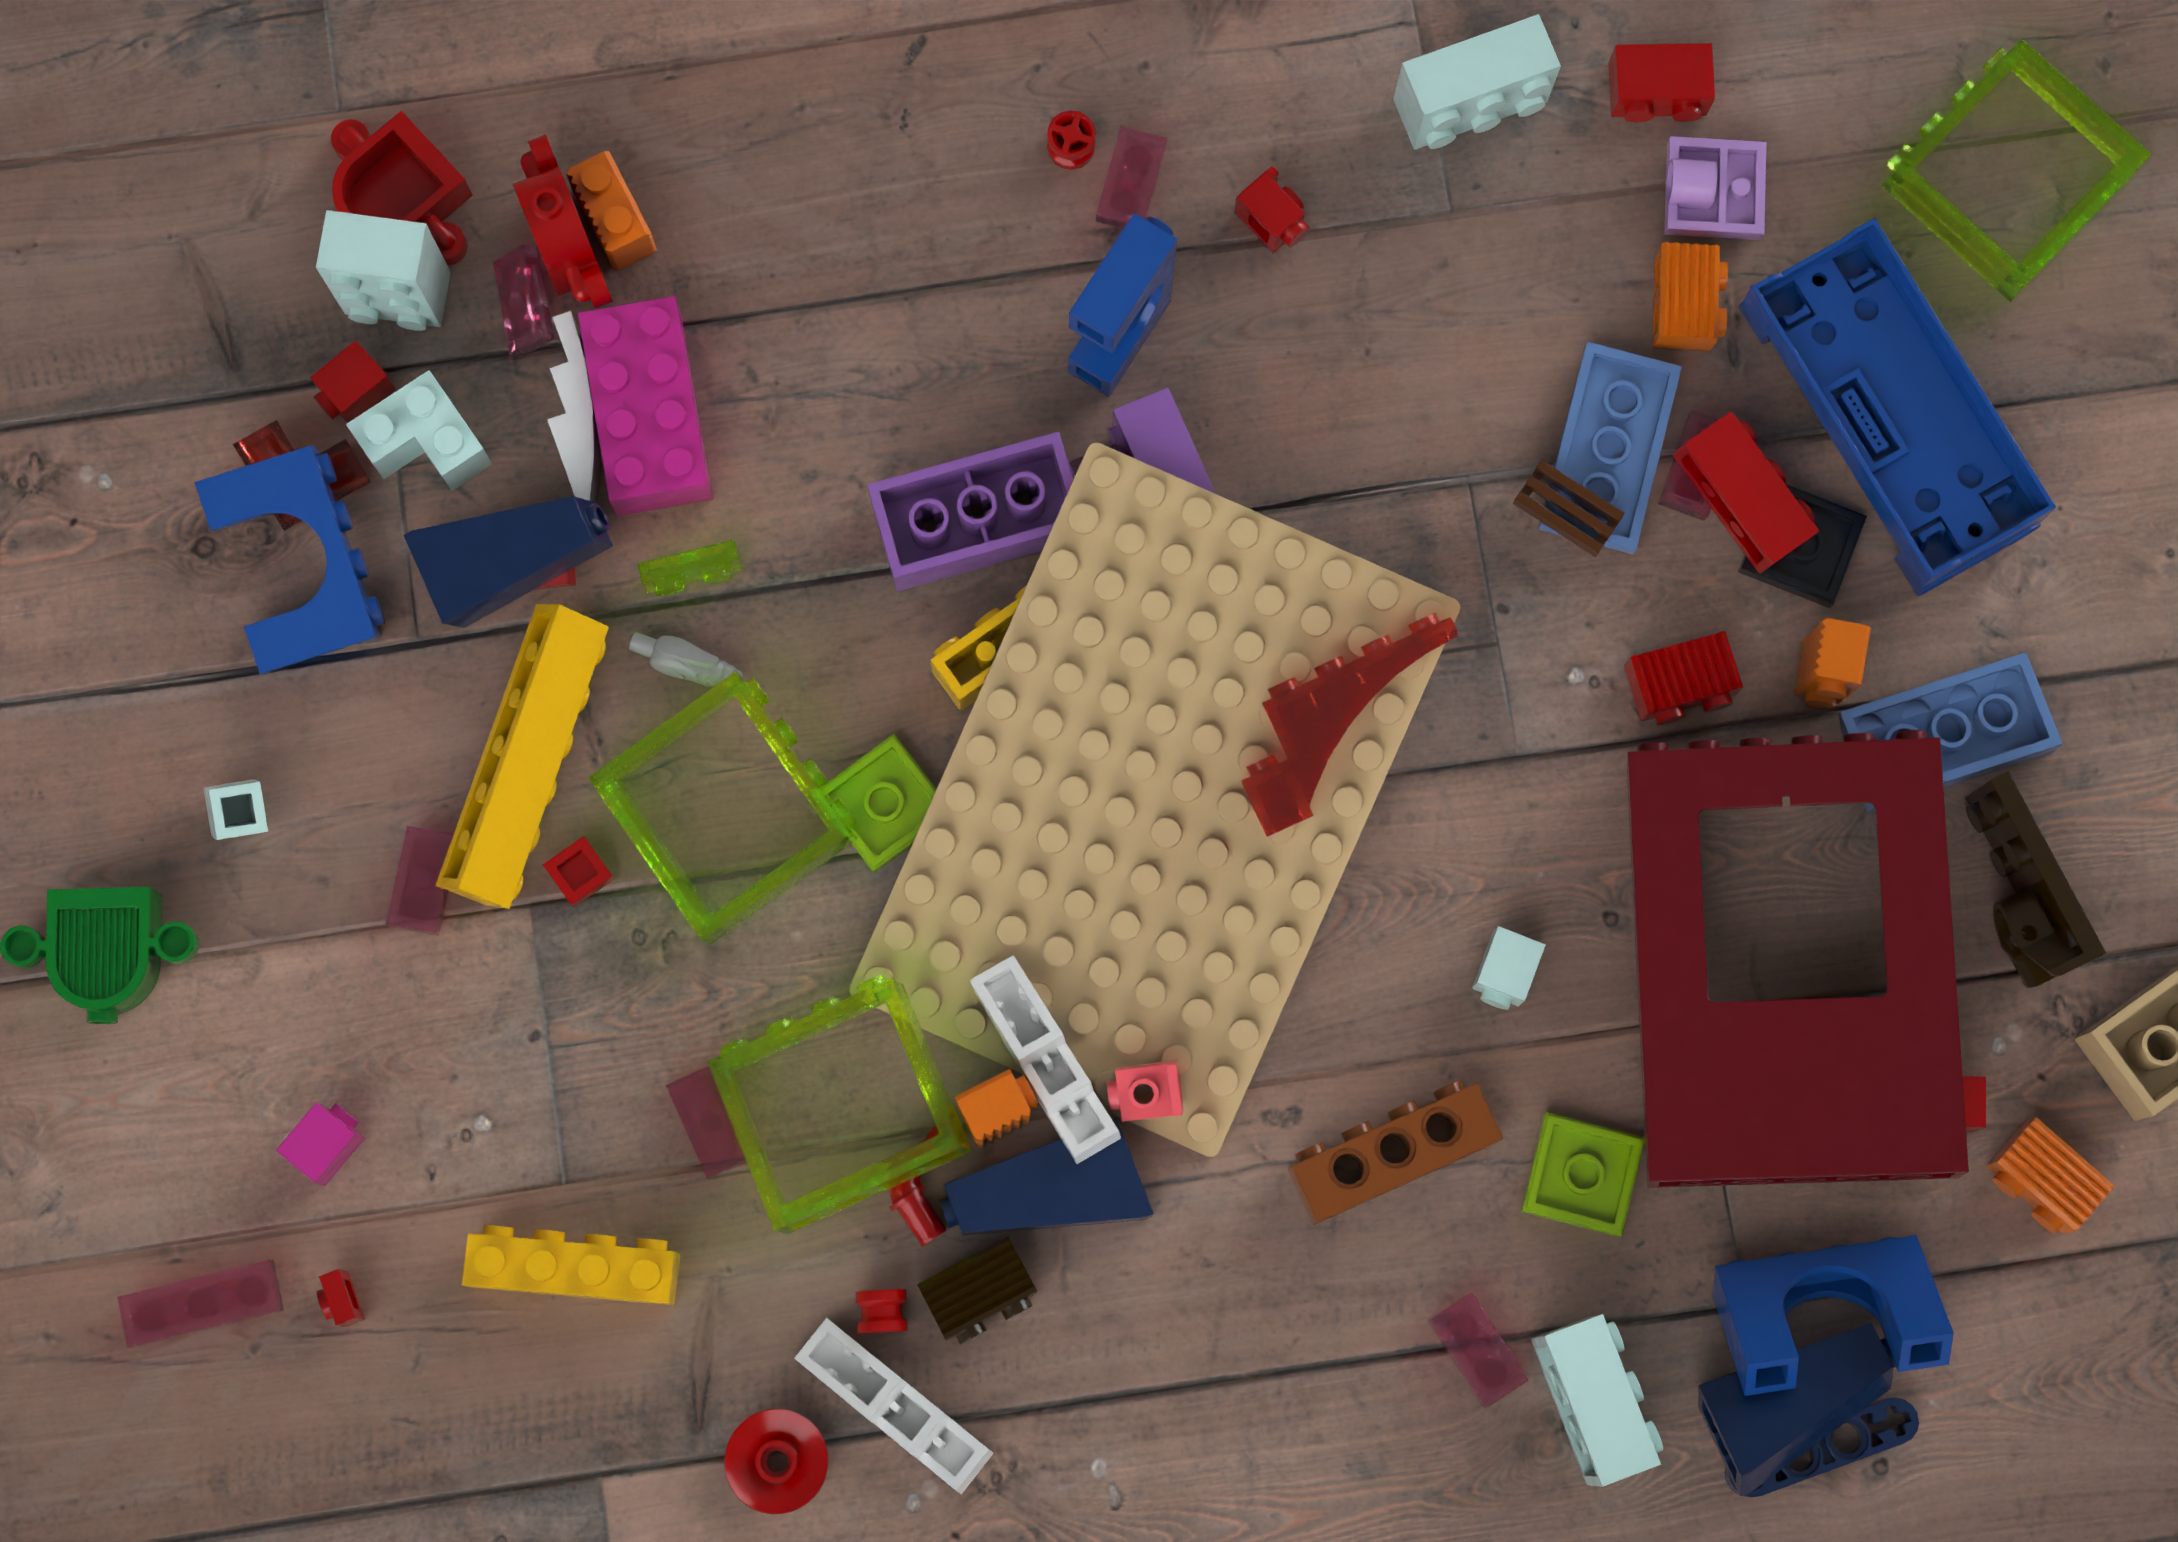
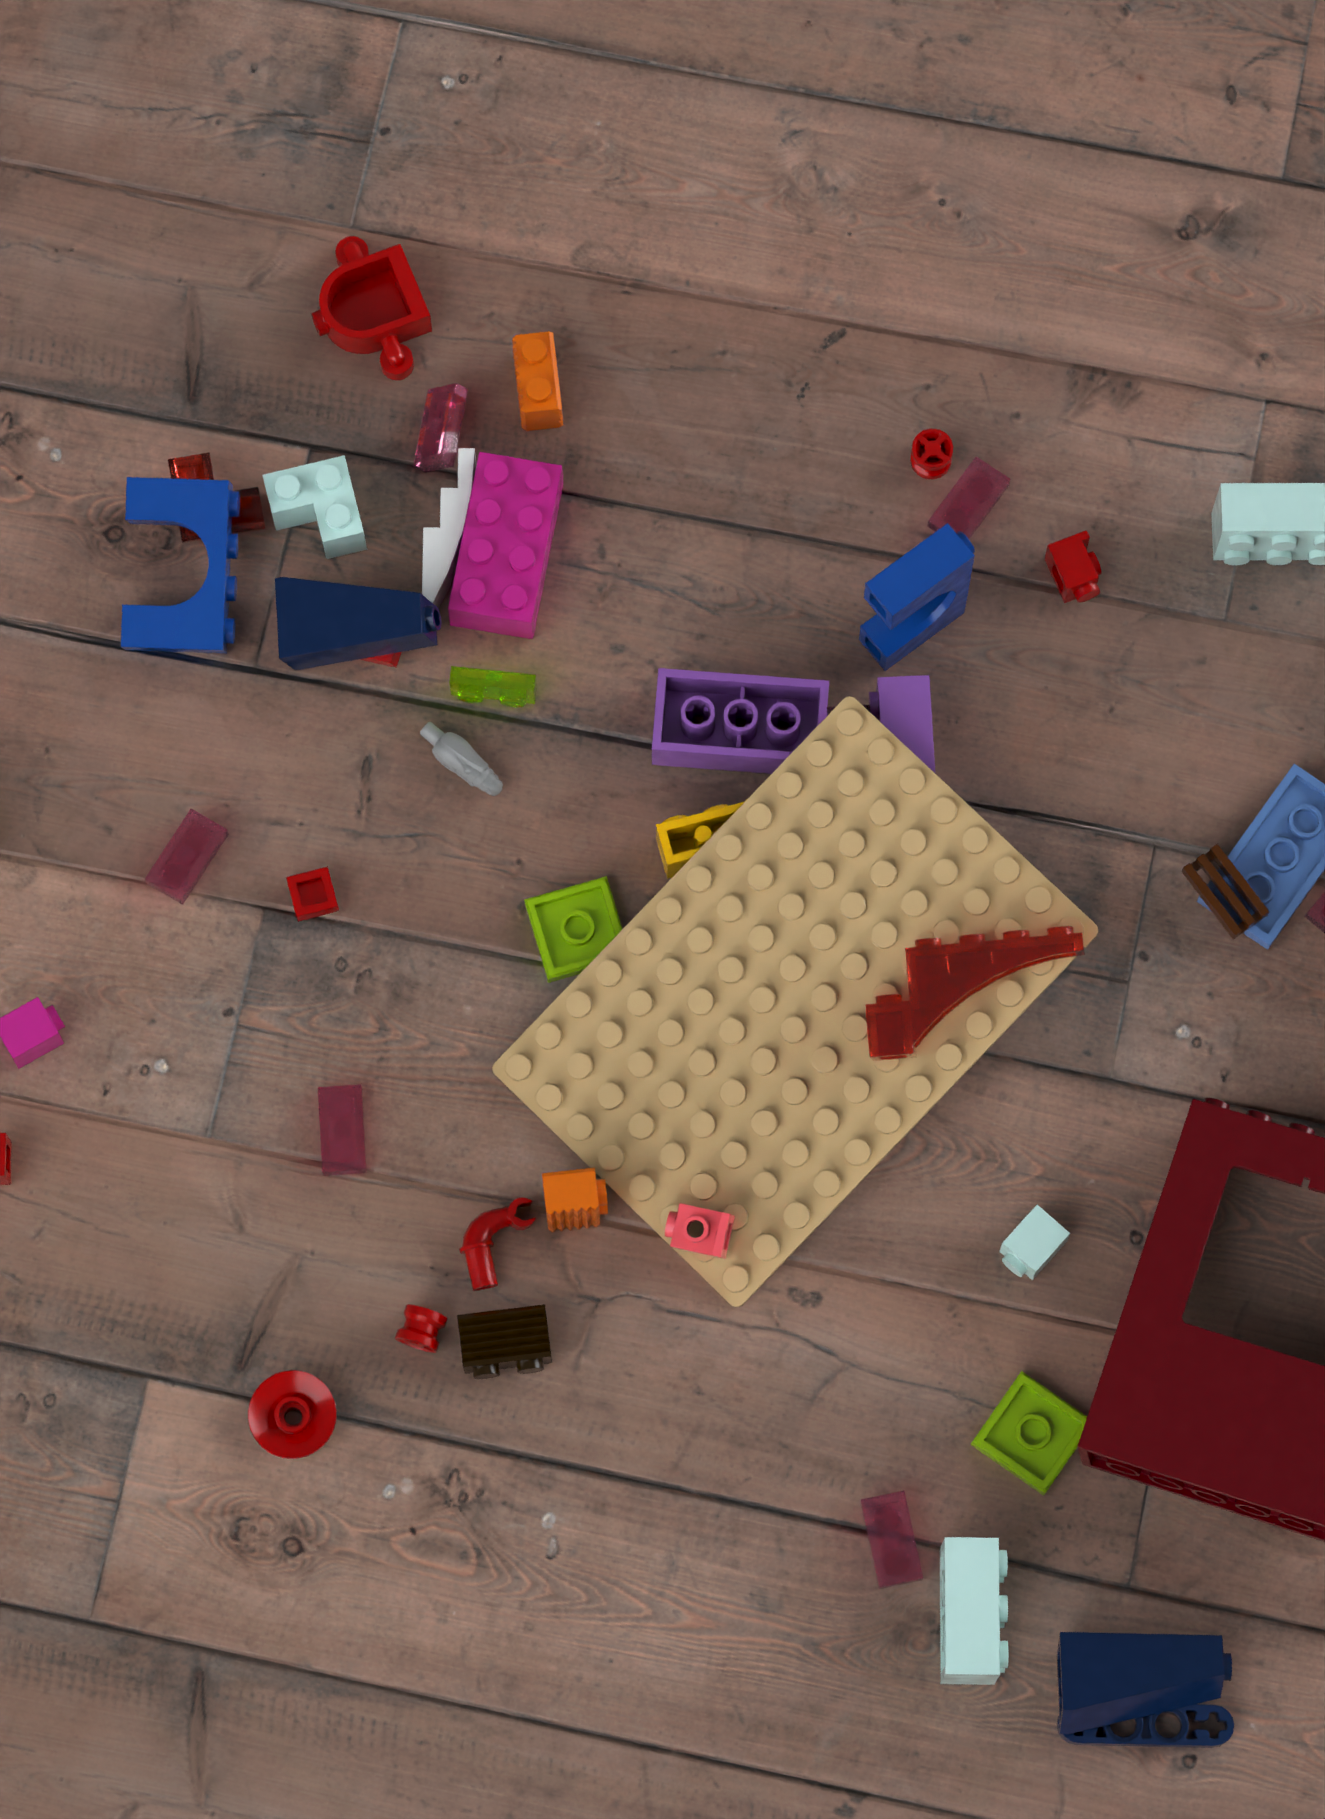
camera: 25 degrees right, 5 degrees down
(235, 809) = (61, 745): light aqua brick -> none
(351, 383) = (278, 444): red brick -> none
(383, 270) = (338, 364): light aqua brick -> none
(523, 756) = (303, 786): yellow brick -> none
(558, 227) = (490, 378): red piece -> none
(570, 1268) = (188, 1202): yellow brick -> none
(806, 775) = (529, 940): clear neon green window -> none
(874, 1178) = (455, 1217): clear neon green window -> none
(894, 1406) = (402, 1407): white slope -> none
(1045, 1059) = (627, 1175): white slope -> none
(1048, 1191) = (595, 1280): dark blue slope -> none
(1471, 1131) = (818, 1374): dark orange brick -> none
(1683, 678) = (1269, 1063): red brick -> none
(1881, 1276) = (1243, 1601): blue arch -> none

